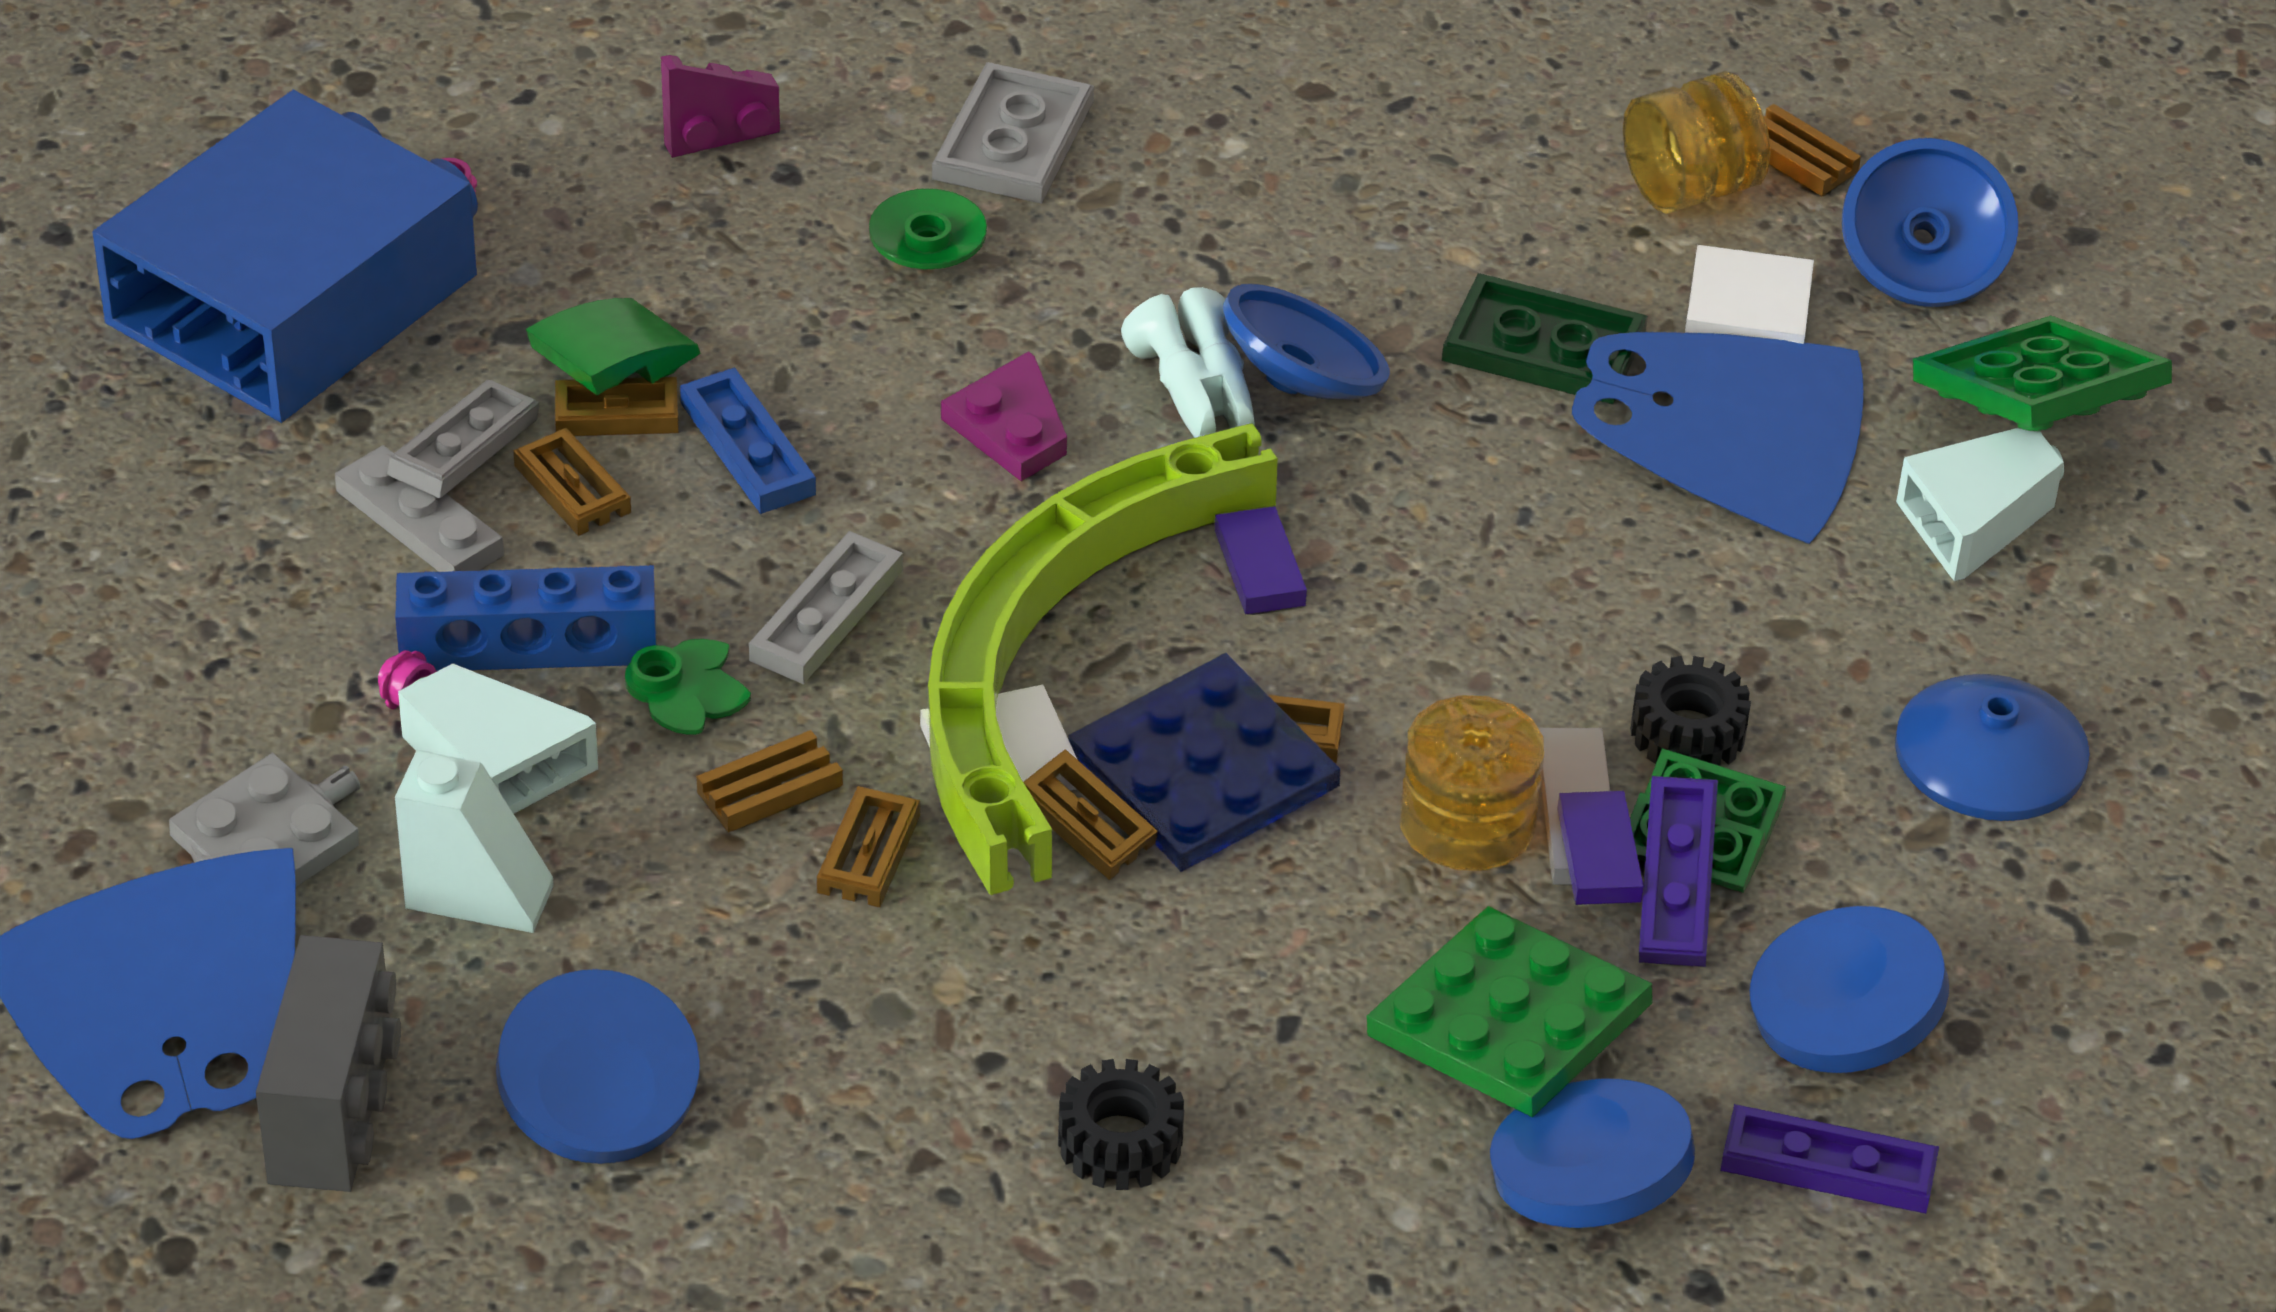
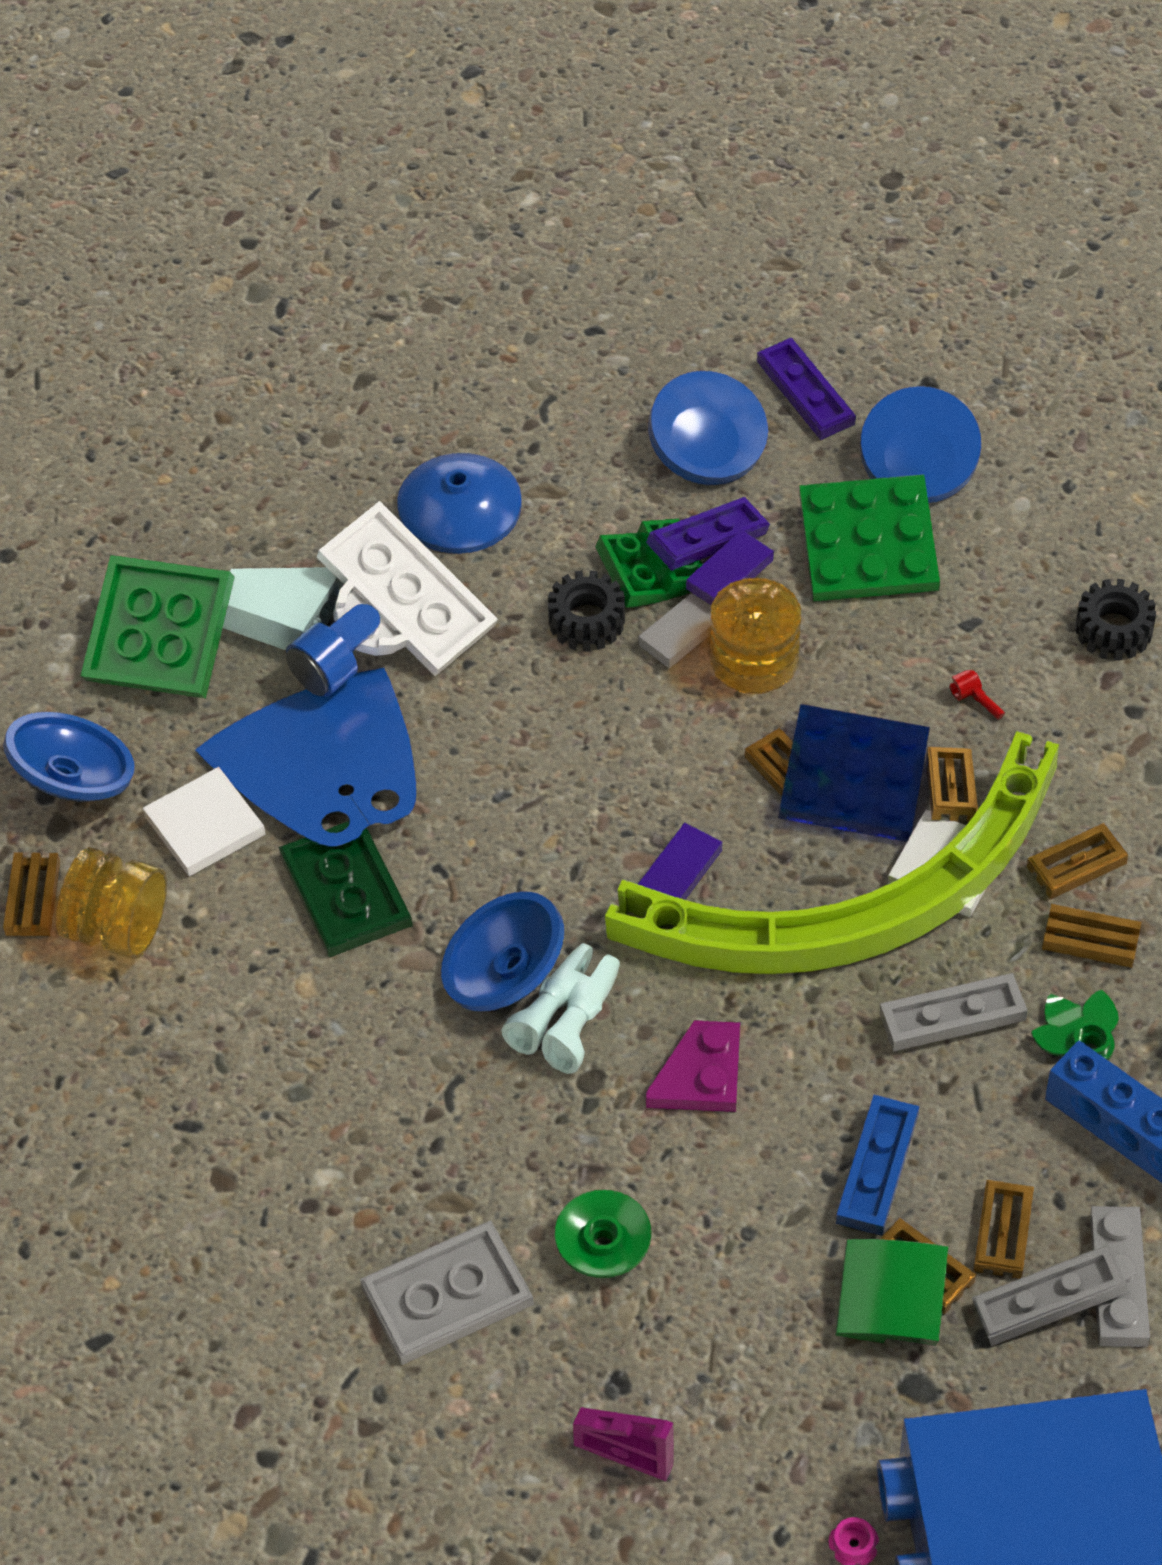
camera: 130 degrees left, 10 degrees up
(1197, 941) = (969, 684): none -> red hand
(1869, 541) = (389, 601): none -> white plate

